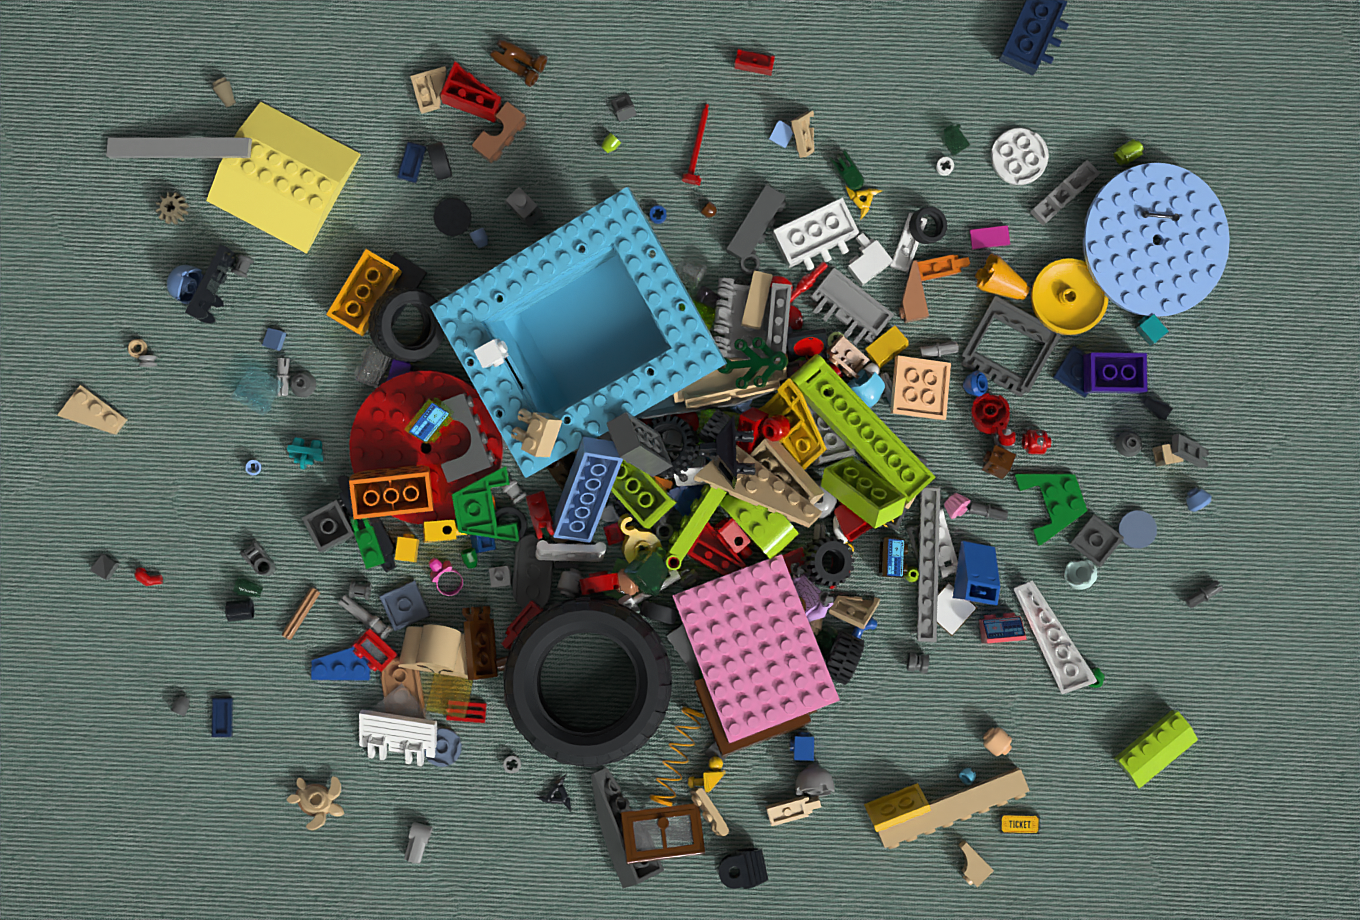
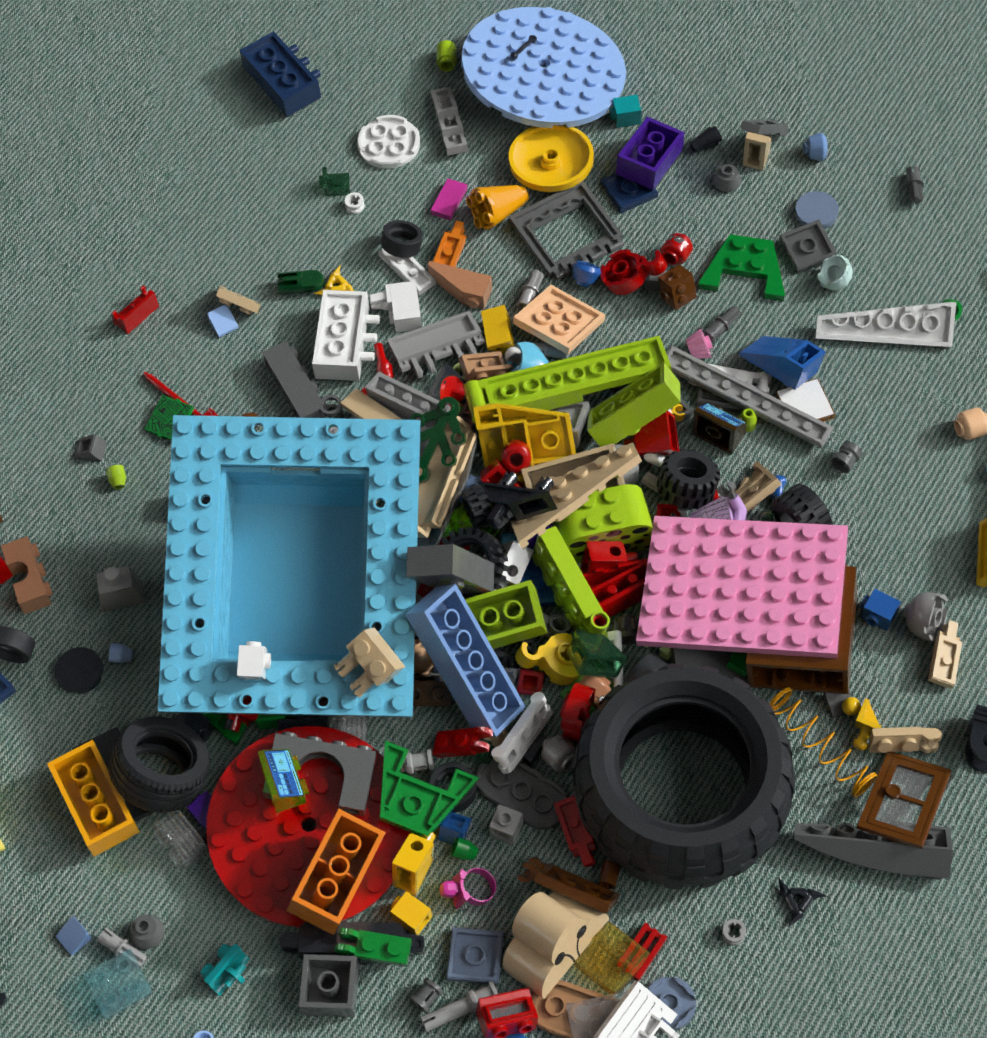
camera: 55 degrees left, 25 degrees down
(678, 149) = (162, 417): none -> green piece
(1001, 629) = (853, 363): slope -> none

